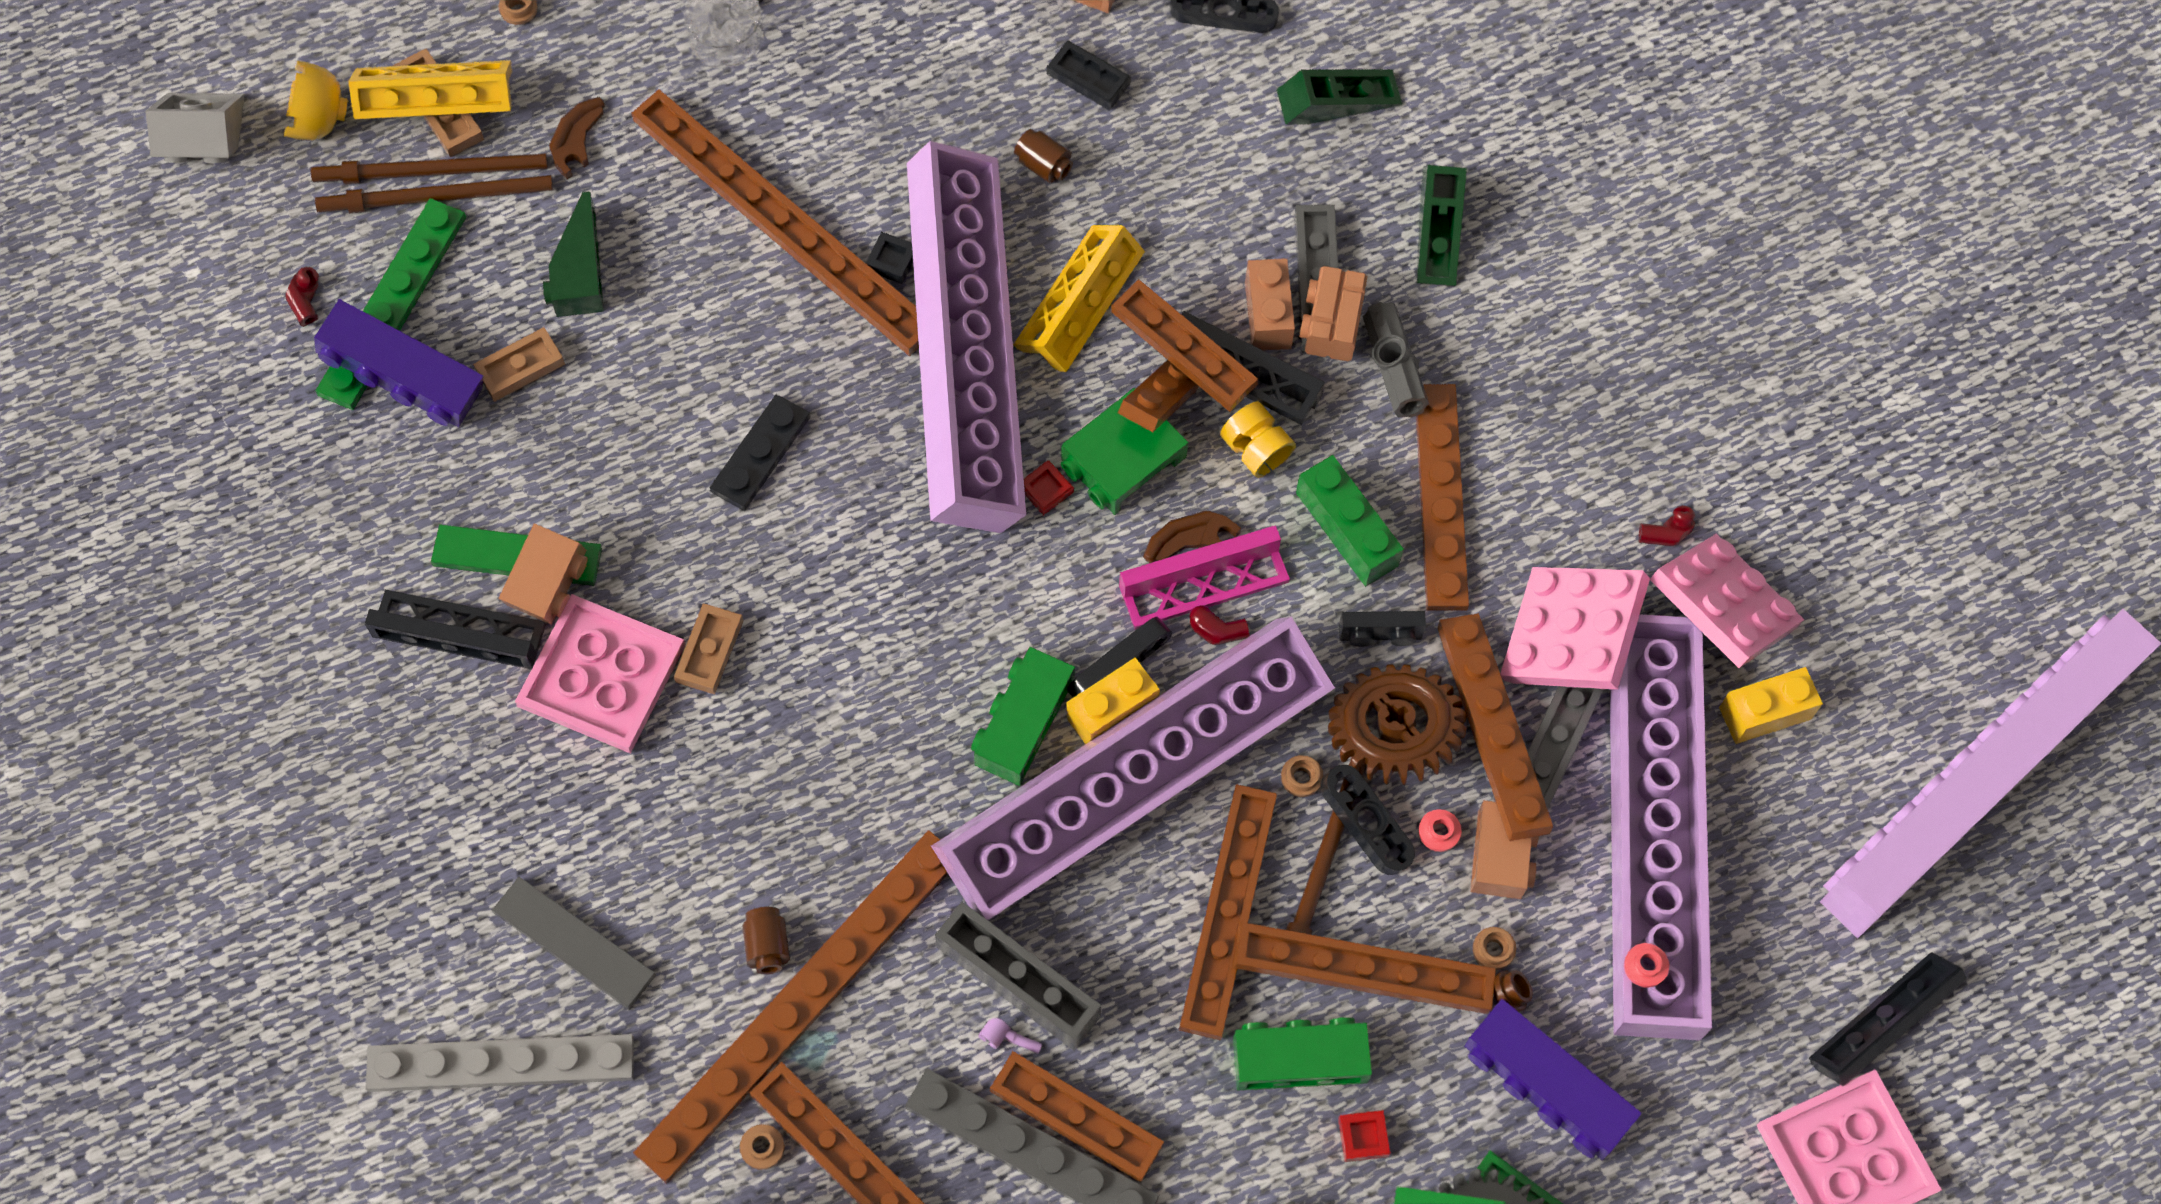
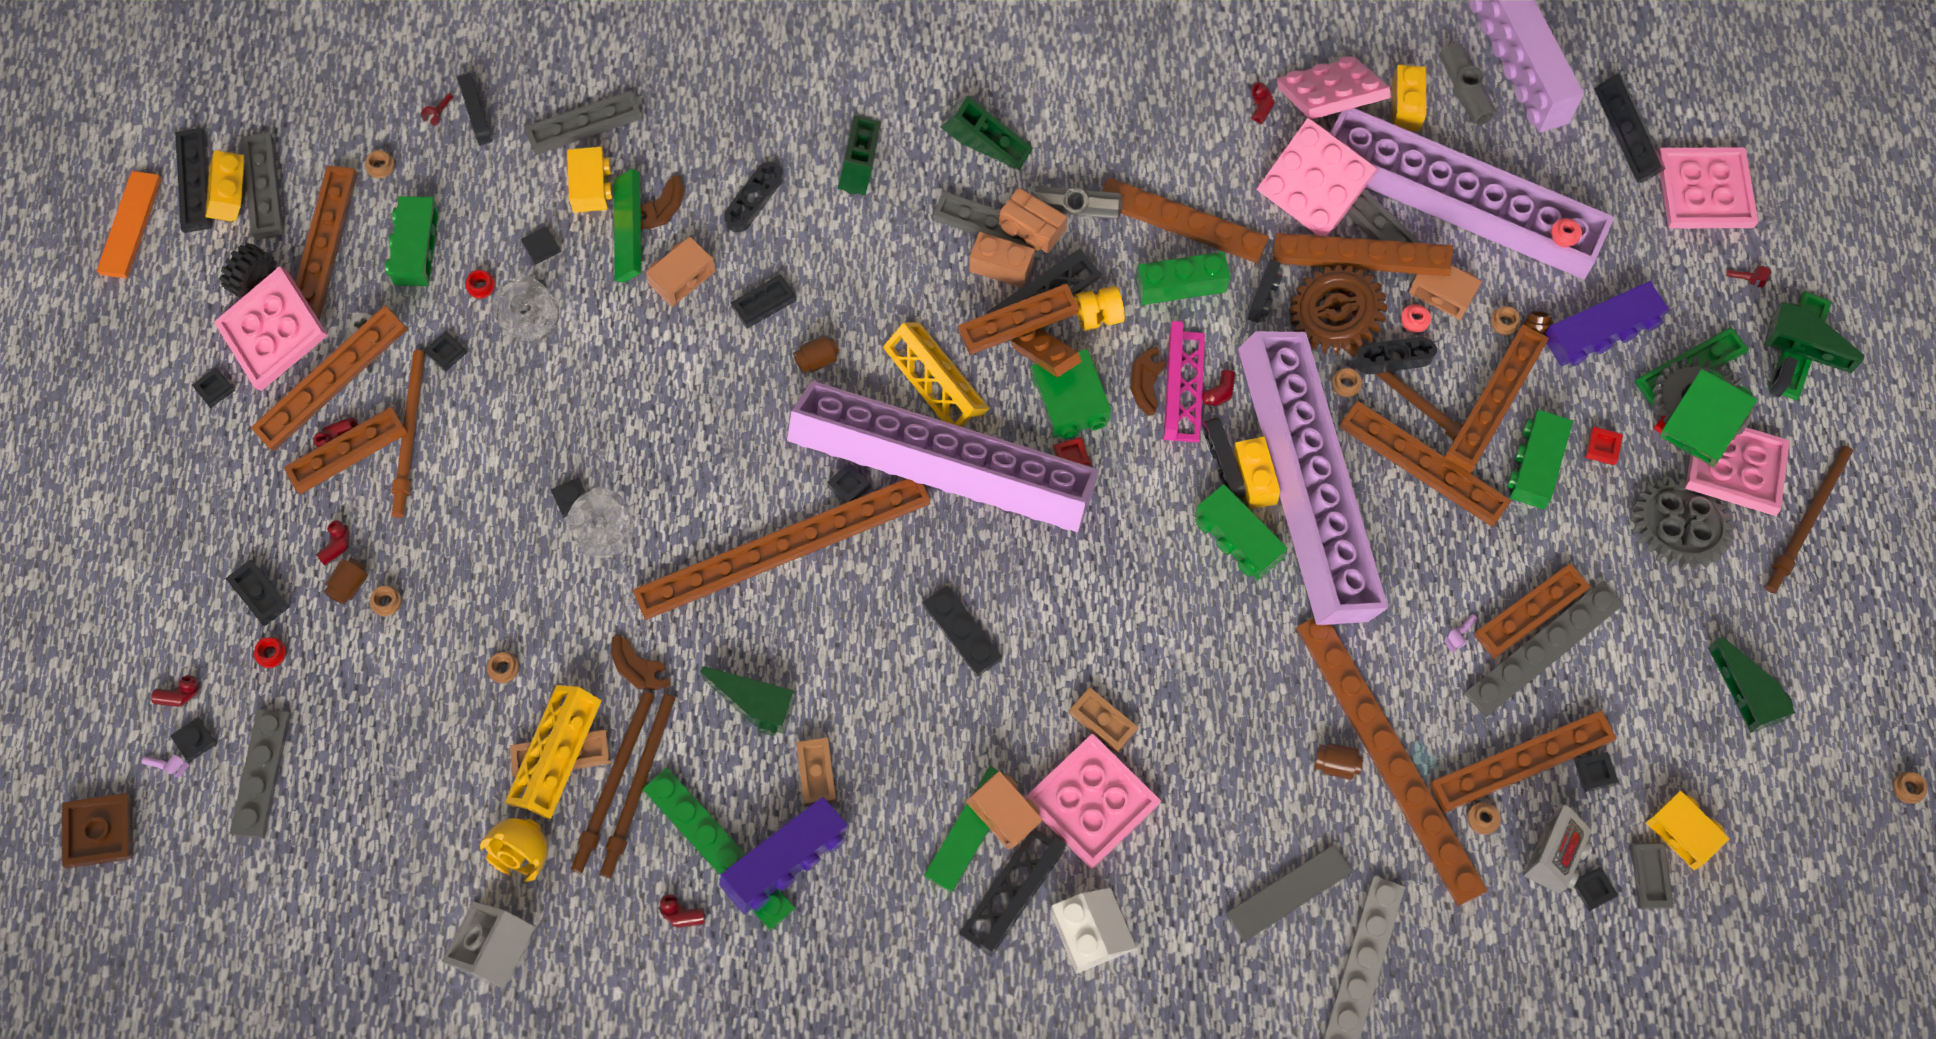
camera: 65 degrees left, 0 degrees up
(440, 729) = (1092, 928): none -> white slope
(1018, 975) = (1428, 606): dark grey brick -> none
(1823, 792) = (1468, 83): none -> dark grey piece

